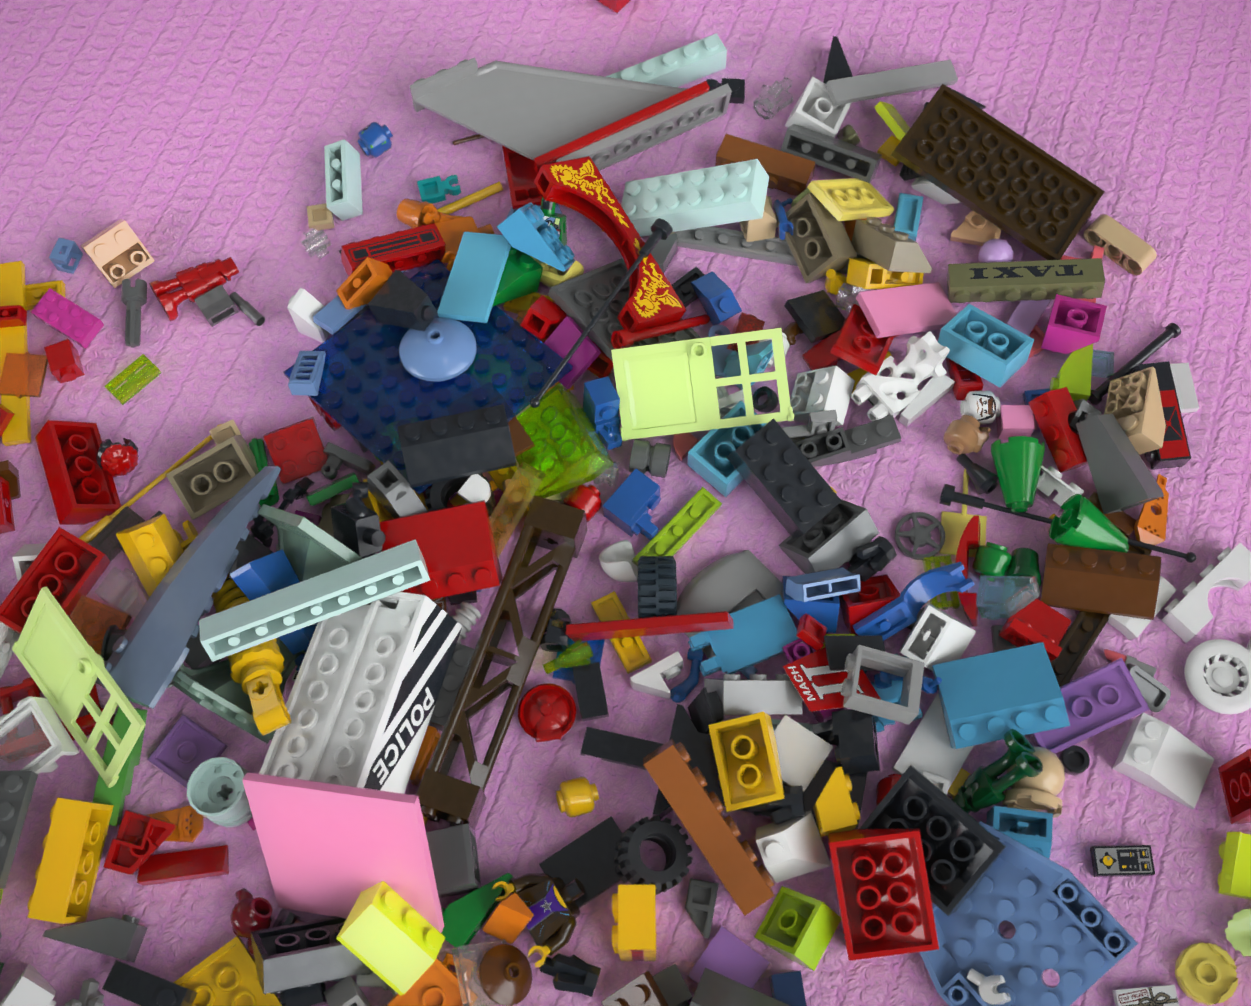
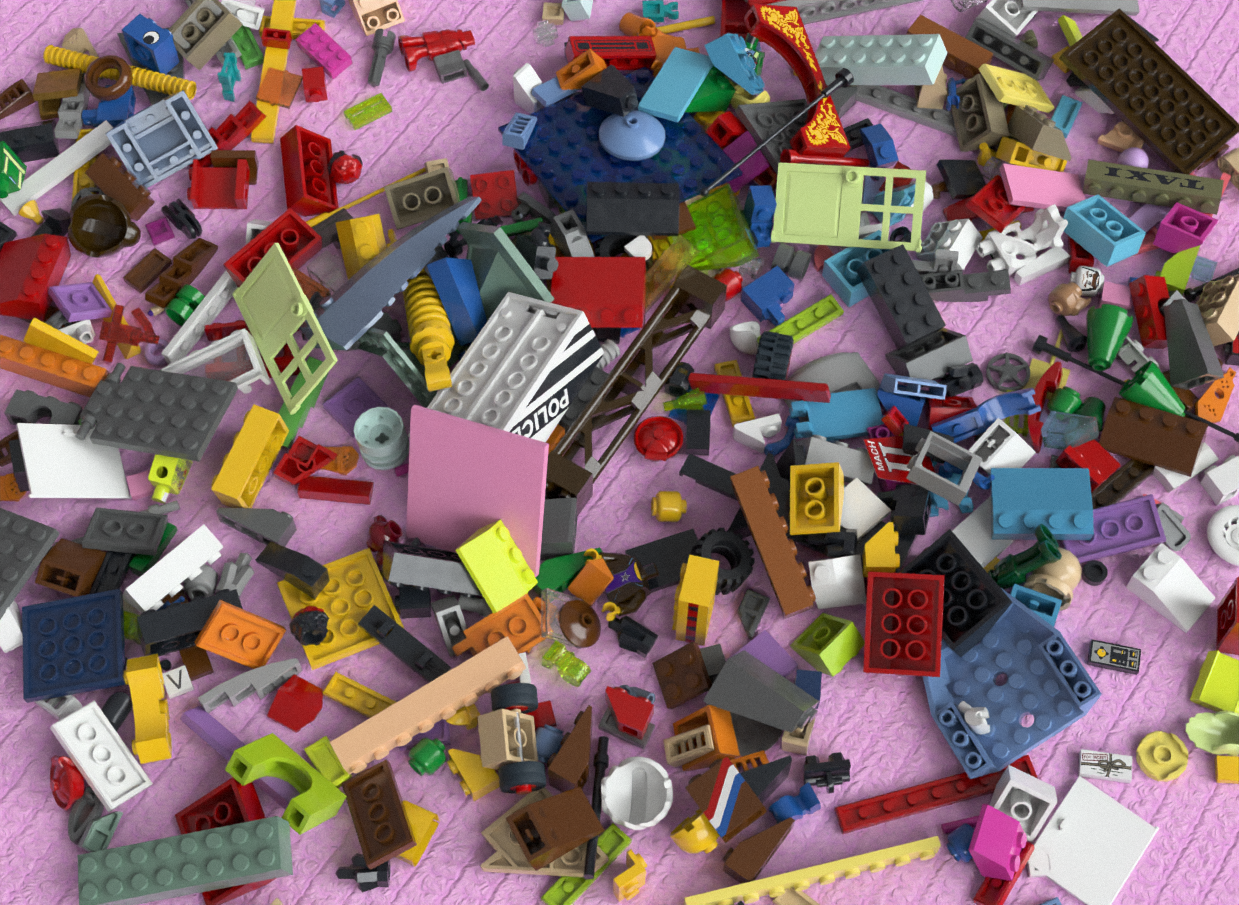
camera: 10 degrees right, 5 degrees down
(313, 600) = (491, 297): light aqua brick -> none

